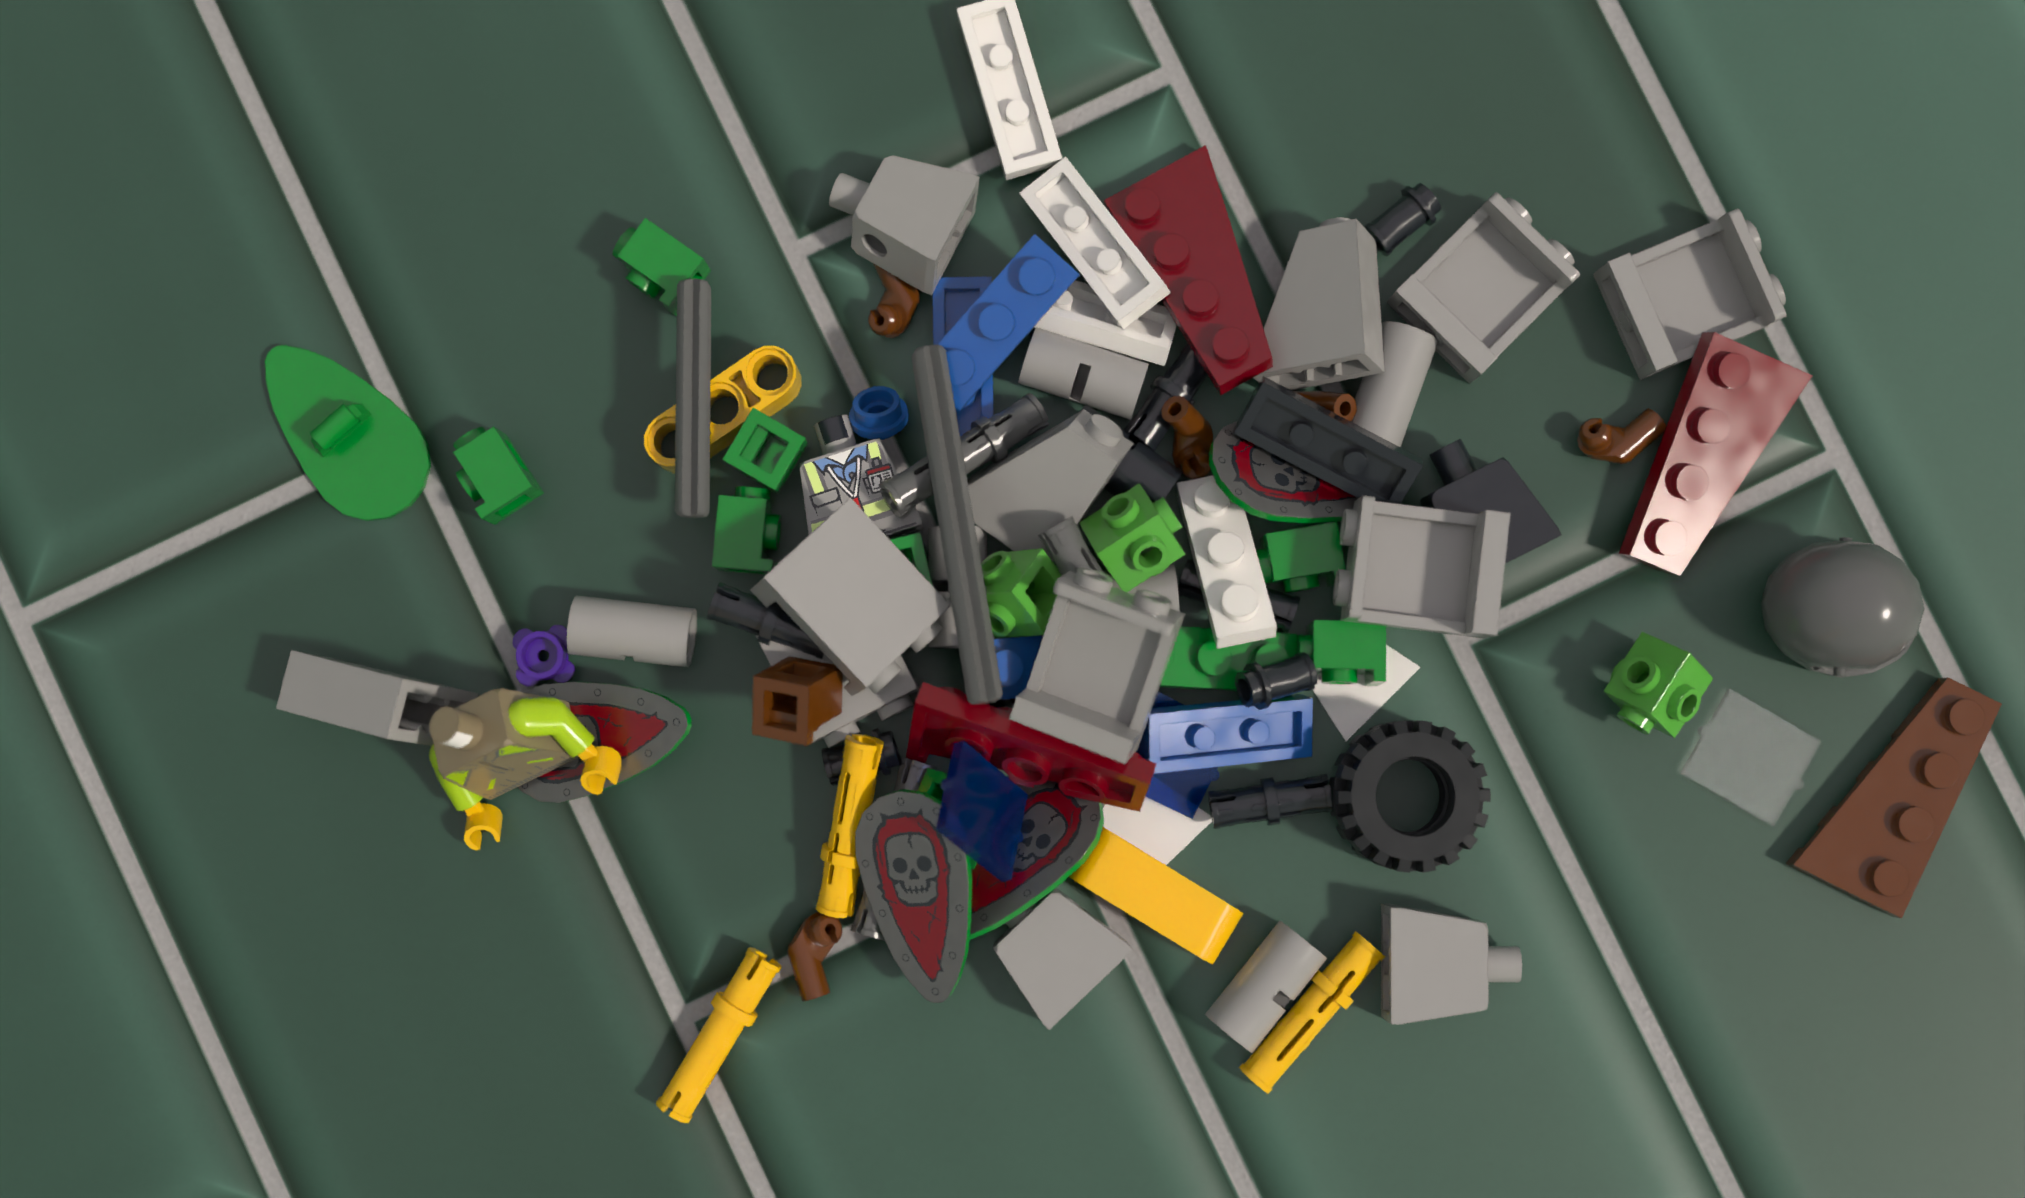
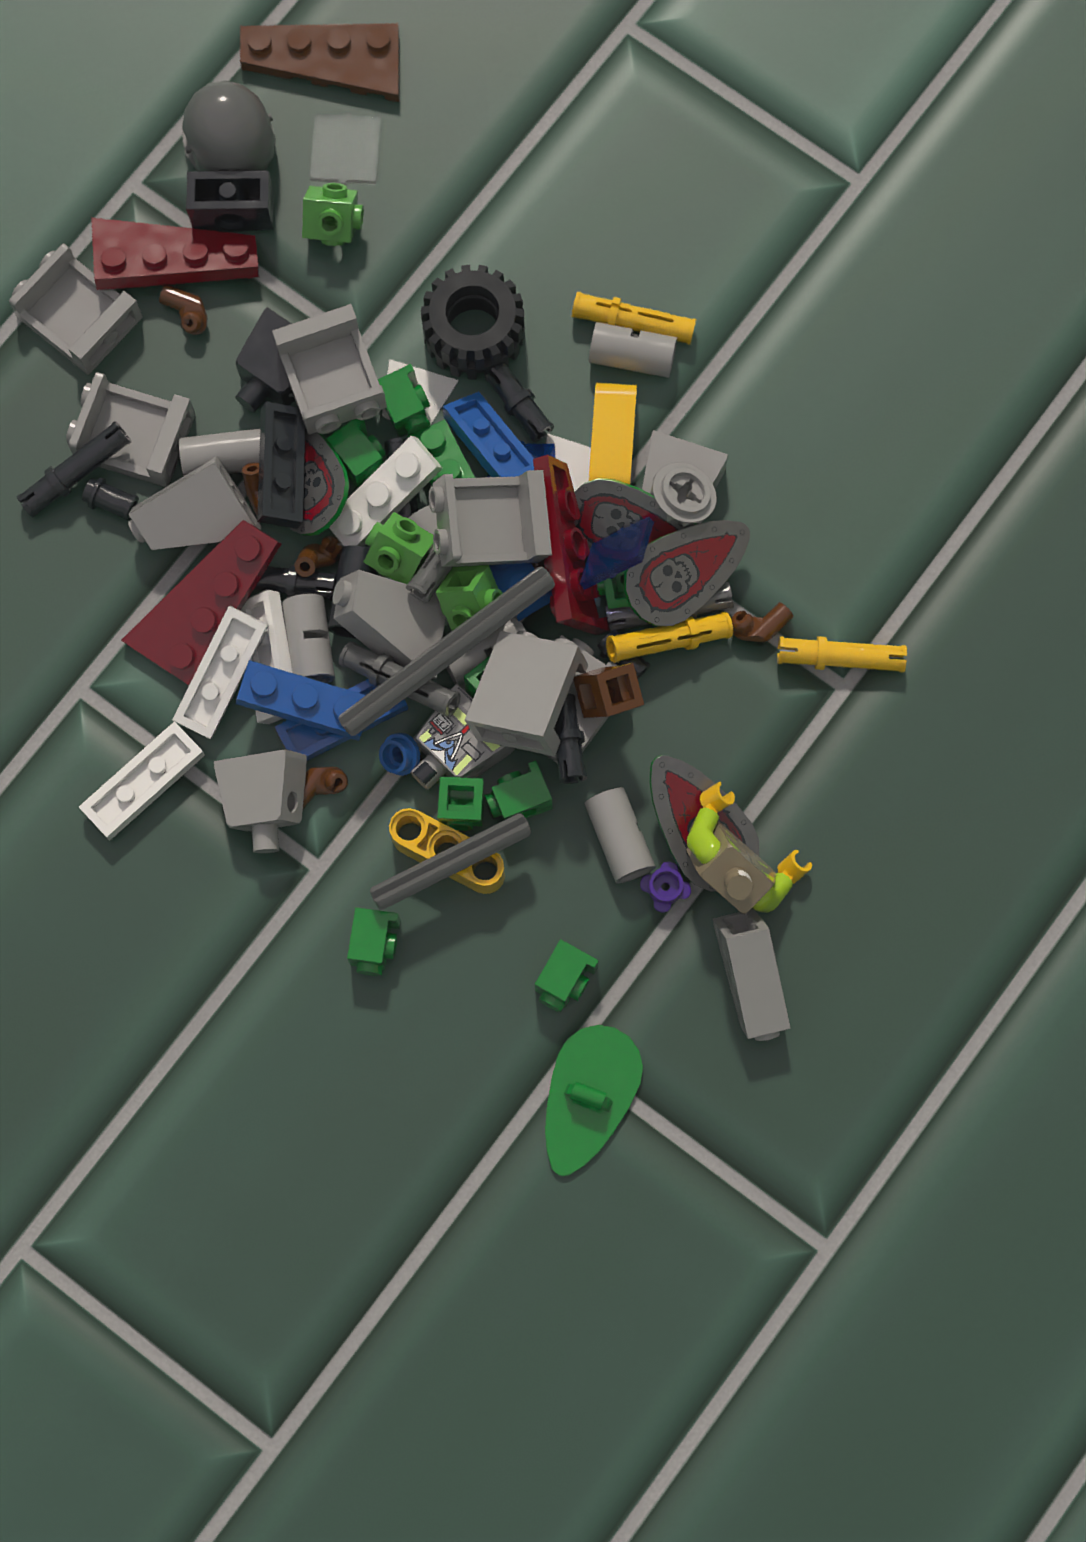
camera: 115 degrees left, 10 degrees down
(1009, 962) = (700, 497): none -> light grey gear
(1262, 684) = (450, 431): black pin -> none
(1438, 965) = (566, 260): light grey torso -> none
(1459, 166) = (72, 470): none -> black pin
(1742, 562) = (230, 200): none -> black brick

